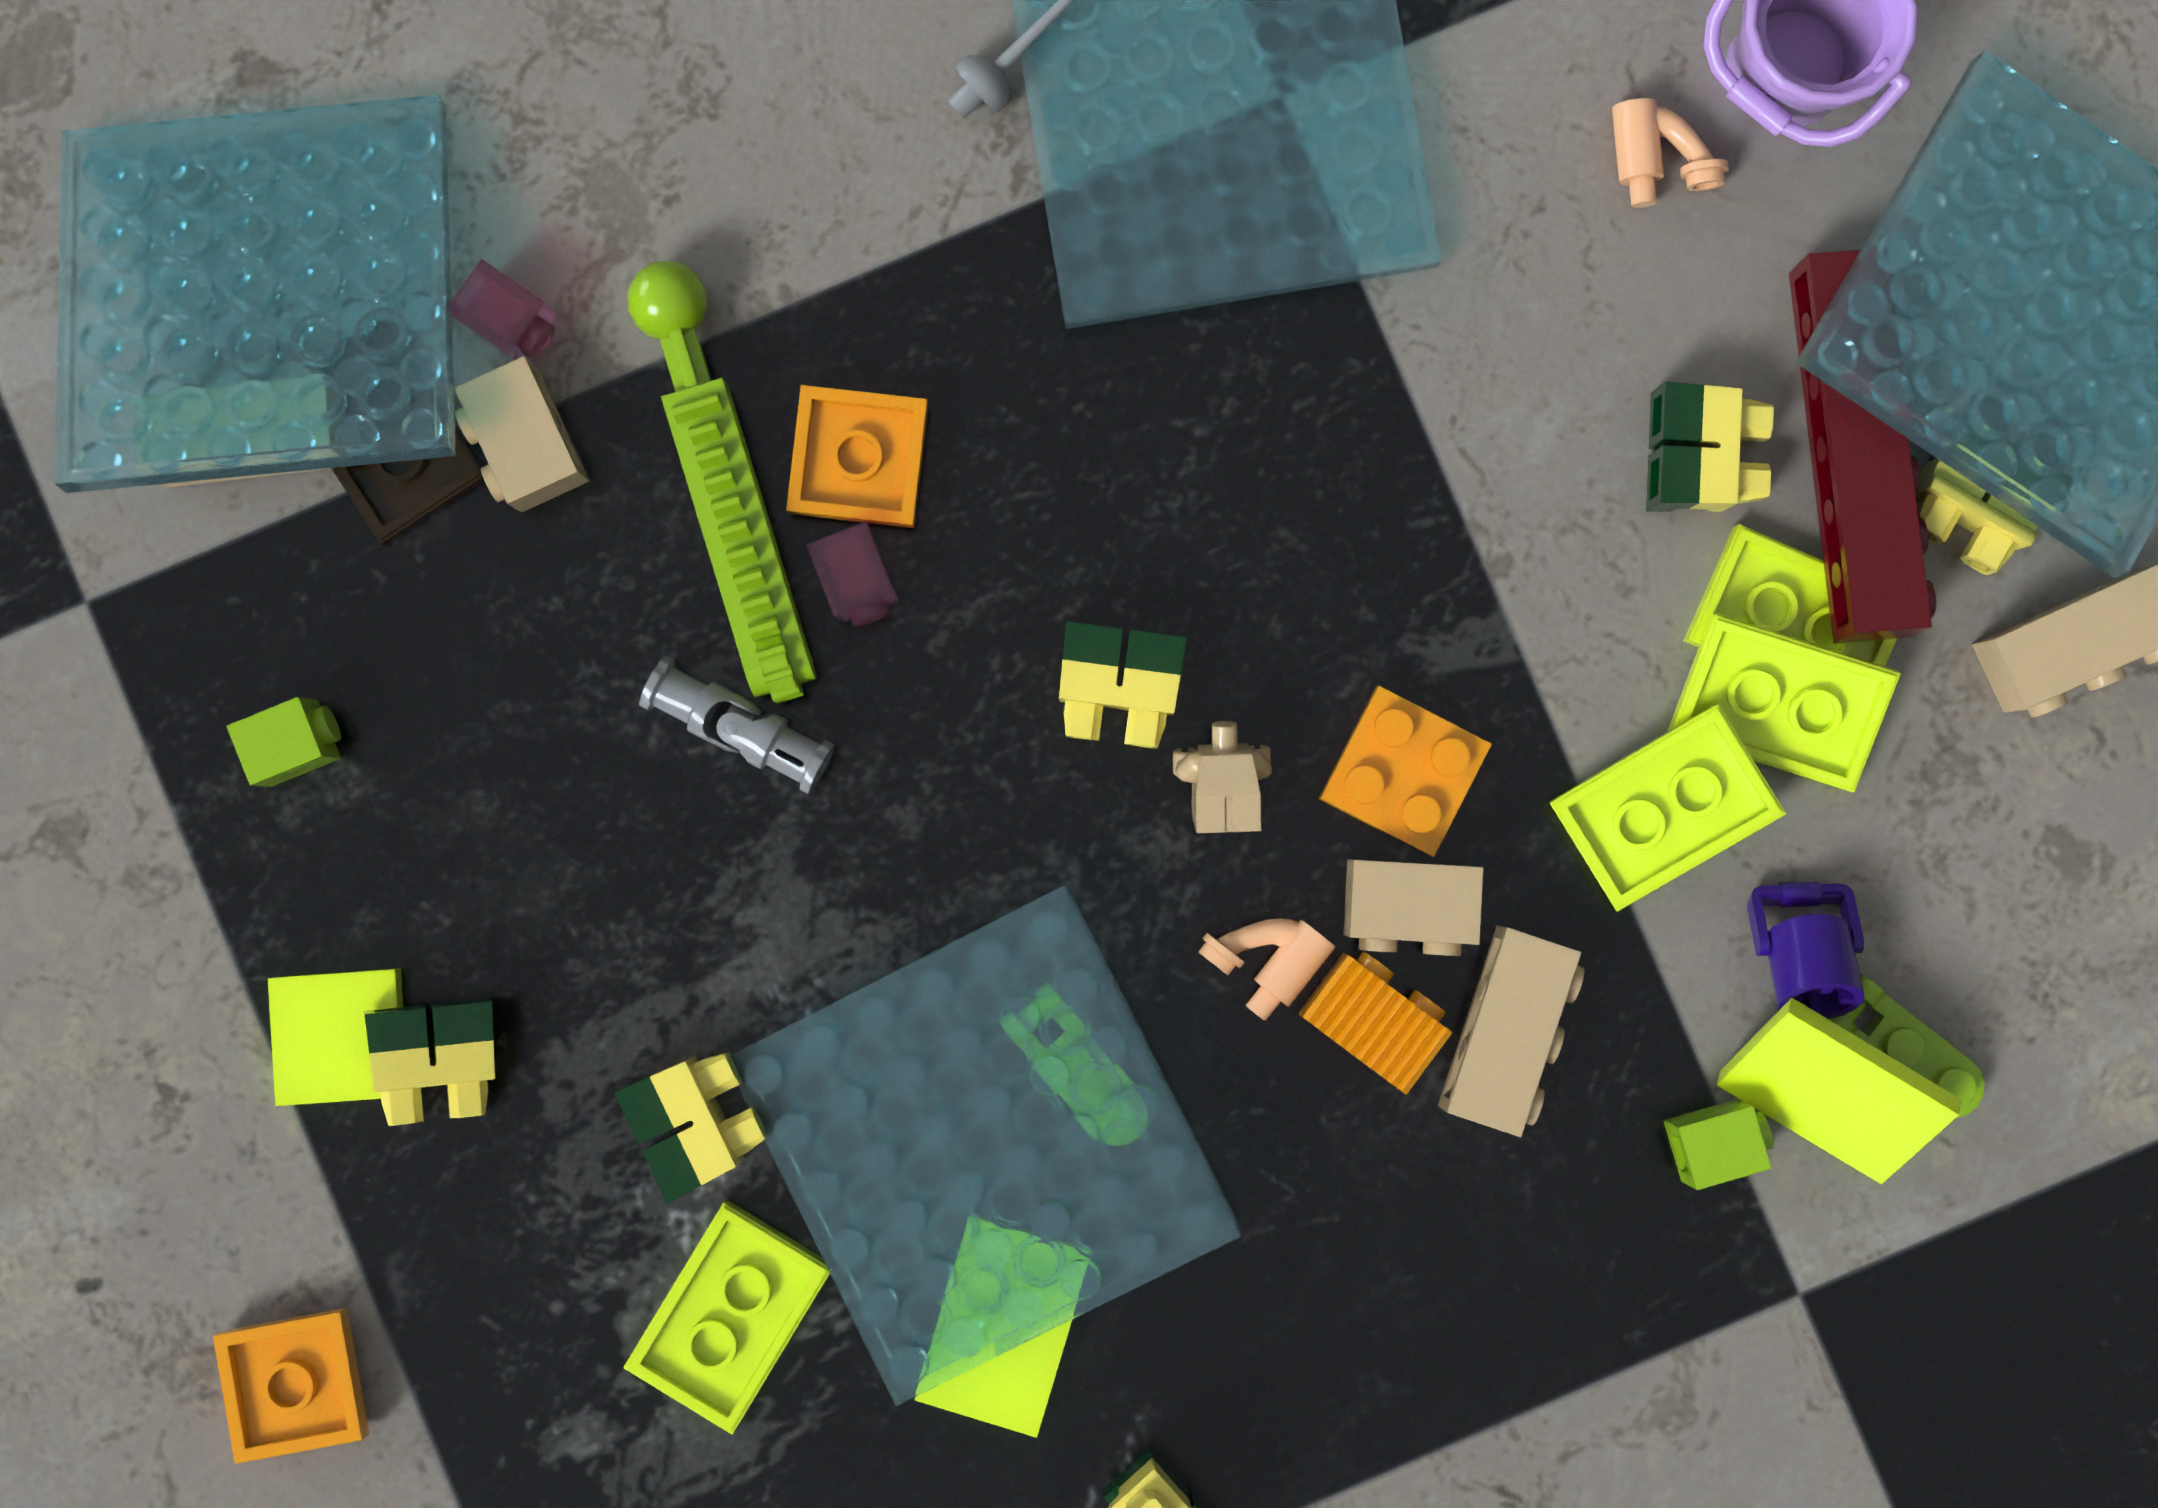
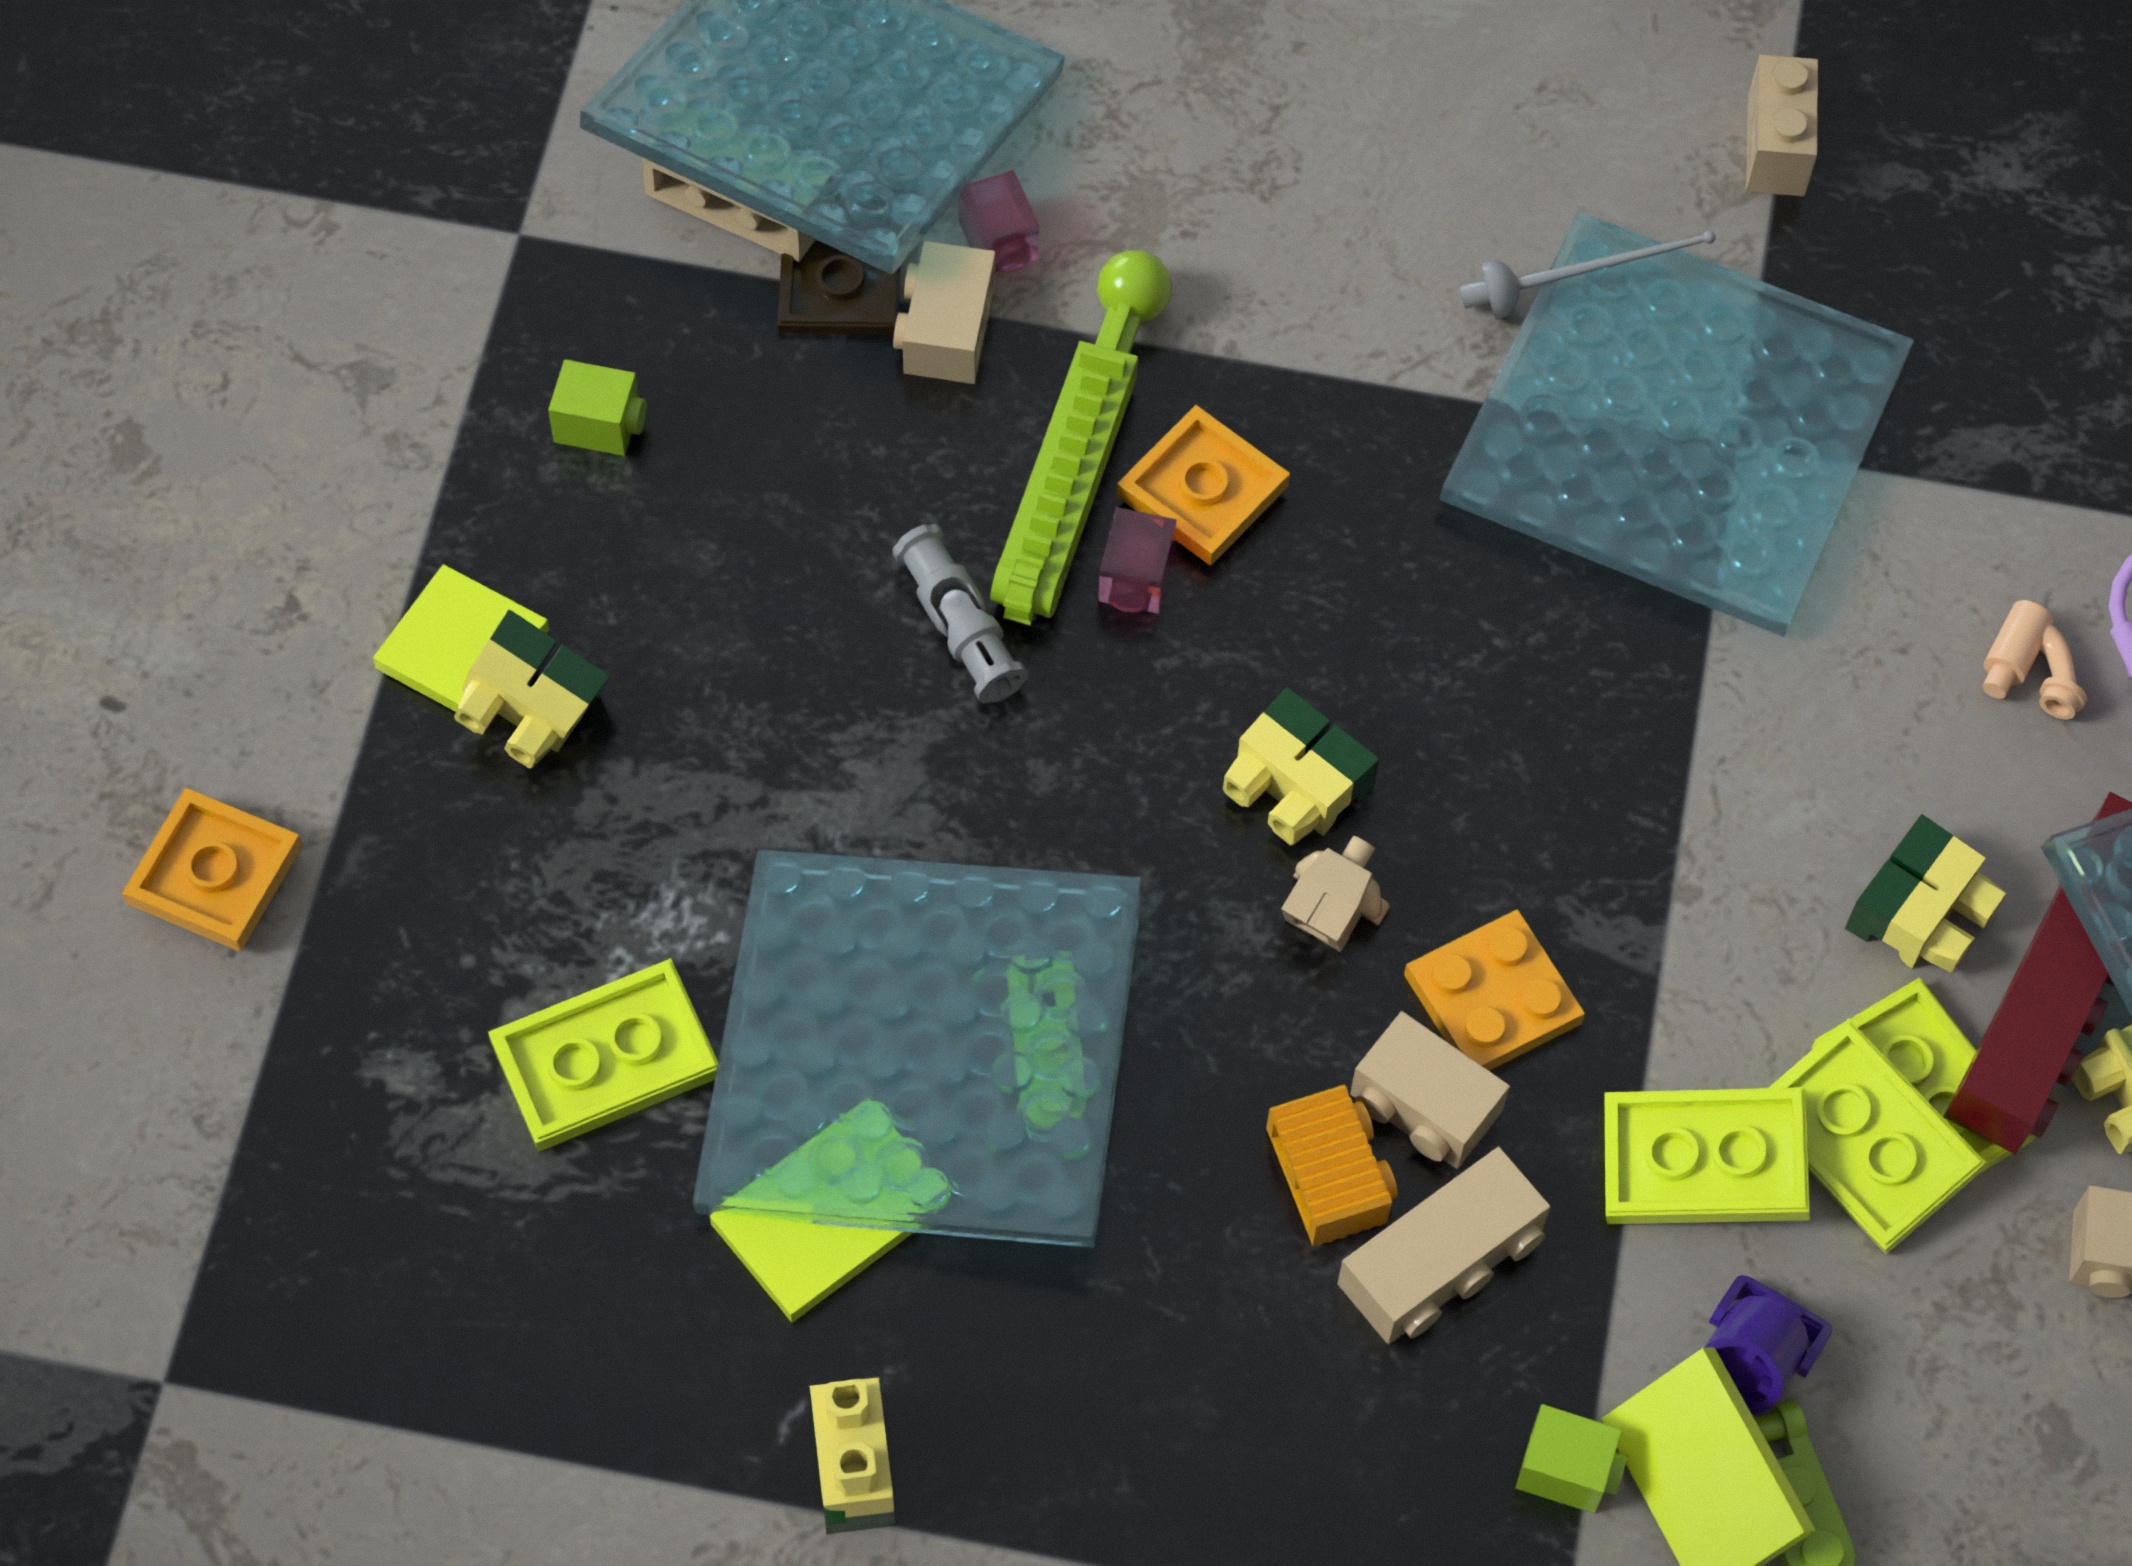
camera: 30 degrees right, 25 degrees down
(684, 1095) = (686, 873): light yellow hips -> none
(1286, 972) = (1273, 1083): light nougat plant -> none

